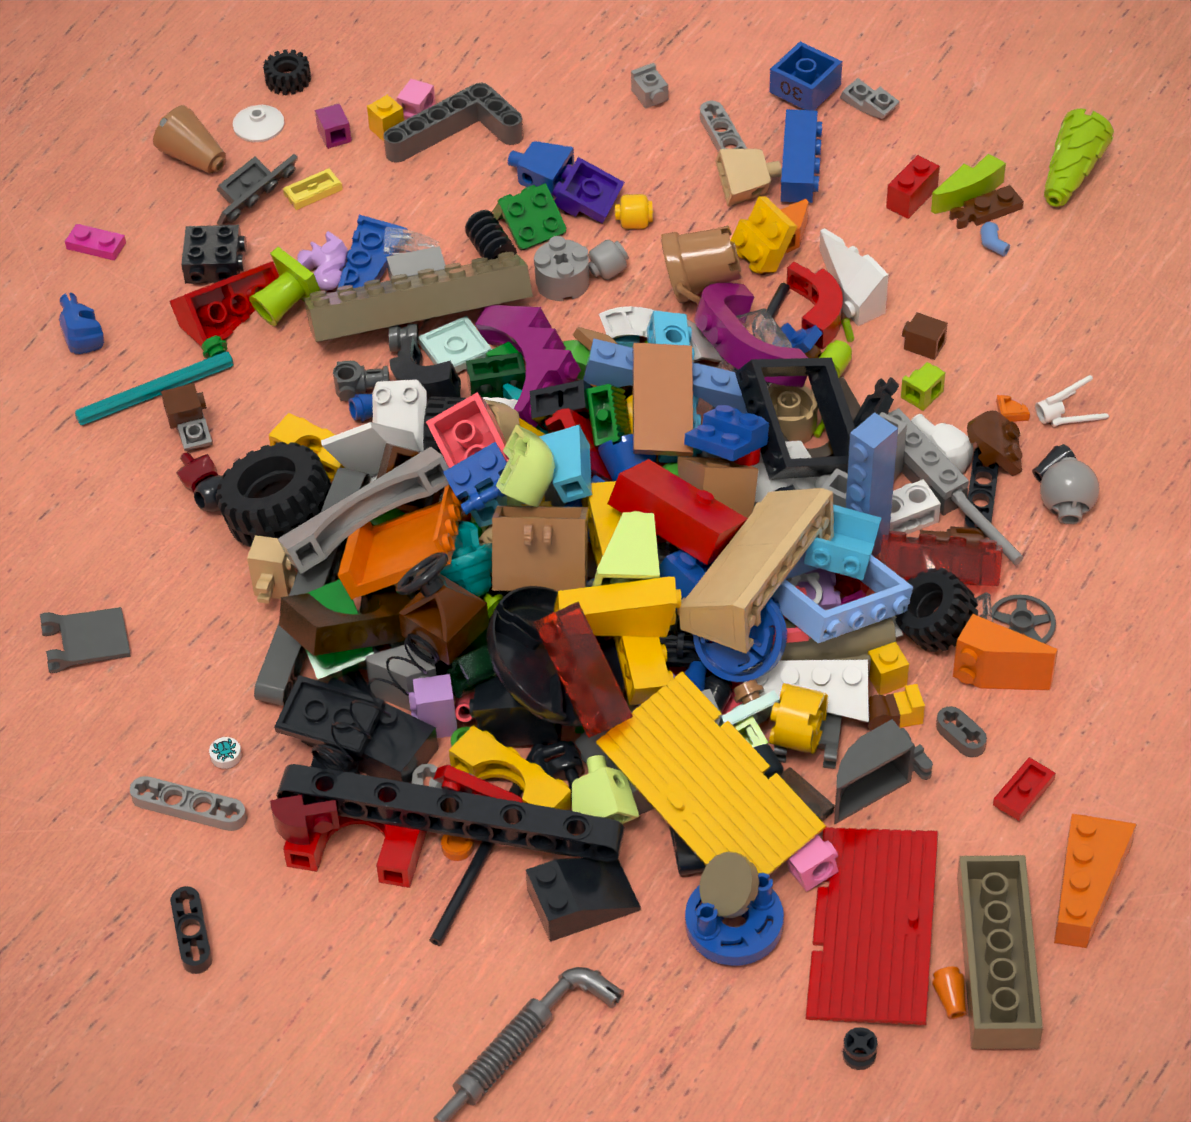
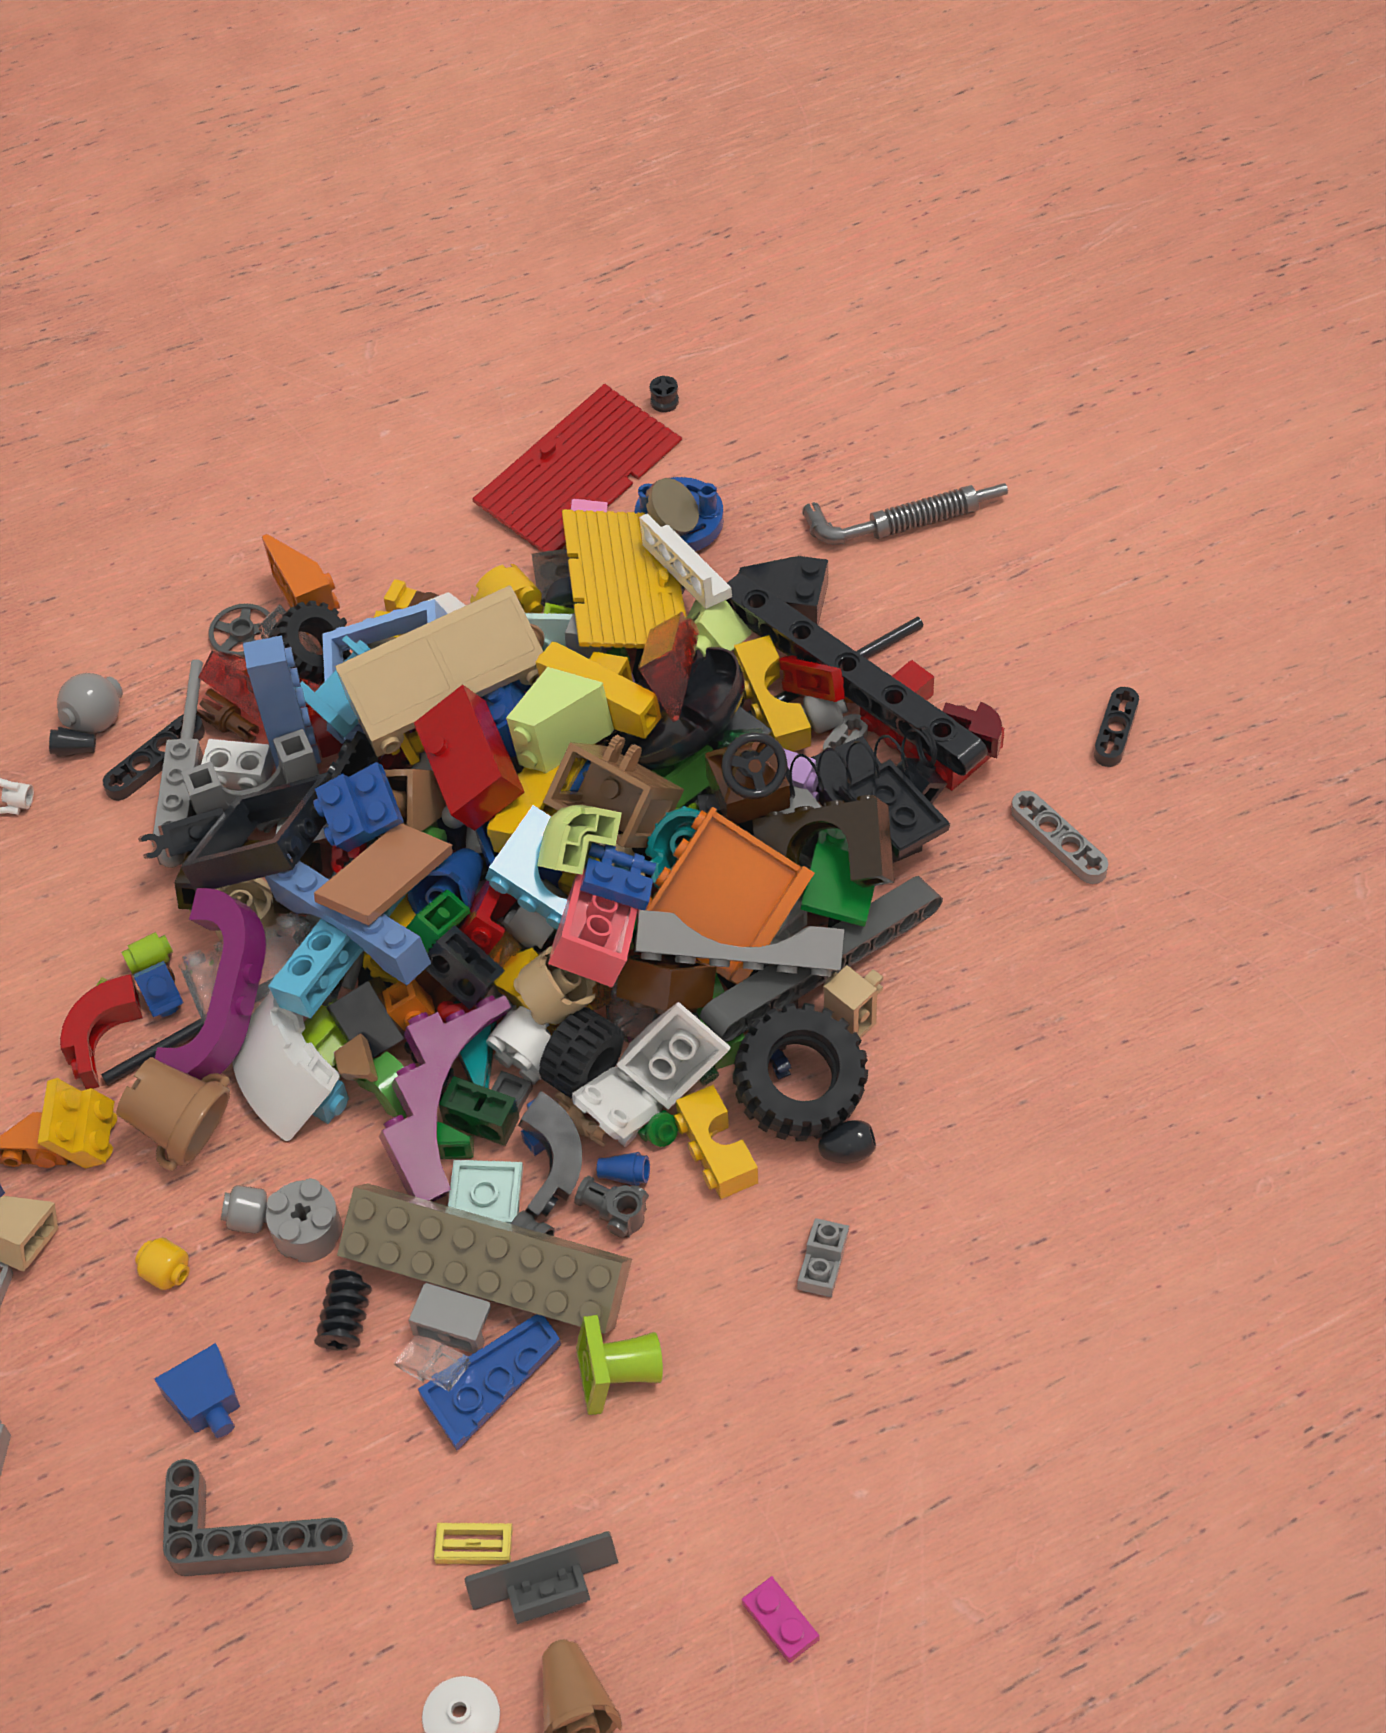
camera: 145 degrees left, 5 degrees up
(79, 326) = (876, 1475): blue piece -> none
(86, 637) = (1067, 1057): dark grey flag -> none
(153, 388) = (834, 1335): teal axle -> none
(183, 404) = (824, 1256): reddish brown brick -> none
(195, 470) = (854, 1183): dark red piece -> none
(212, 253) = (657, 1492): black brick -> none
(213, 346) = (737, 1348): green plate -> none
(222, 305) = (710, 1406): red wedge -> none
(225, 752) = (998, 867): tile -> none
(327, 259) = (532, 1400): lavender animal -> none
(333, 126) = (382, 1626): magenta brick -> none
(383, 115) = (314, 1591): yellow brick -> none
(416, 97) = (255, 1604): bright pink brick -> none
(530, 216) = (272, 1332): green bracket -> none
(587, 190) = (187, 1320): dark purple plate -> none
(662, 812) = (684, 563): none -> white fence
(859, 277) = (46, 1004): white wedge -> none
(876, 767) = (479, 546): dark grey piece -> none
(923, 386) = (95, 878): lime brick -> none
(924, 335) = (41, 931): reddish brown brick -> none
(948, 440) = (138, 804): white piece -> none
(951, 991) = (566, 398): orange cone -> none
(959, 733) = (373, 569): dark grey beam -> none
(997, 441) = (101, 779): reddish brown slope -> none
(999, 953) = (511, 395): dark tan brick -> none
(1011, 409) = (46, 822): orange tile -> none
(1024, 789) = (377, 500): red plate -> none
(1091, 866) = (398, 414): orange wedge -> none

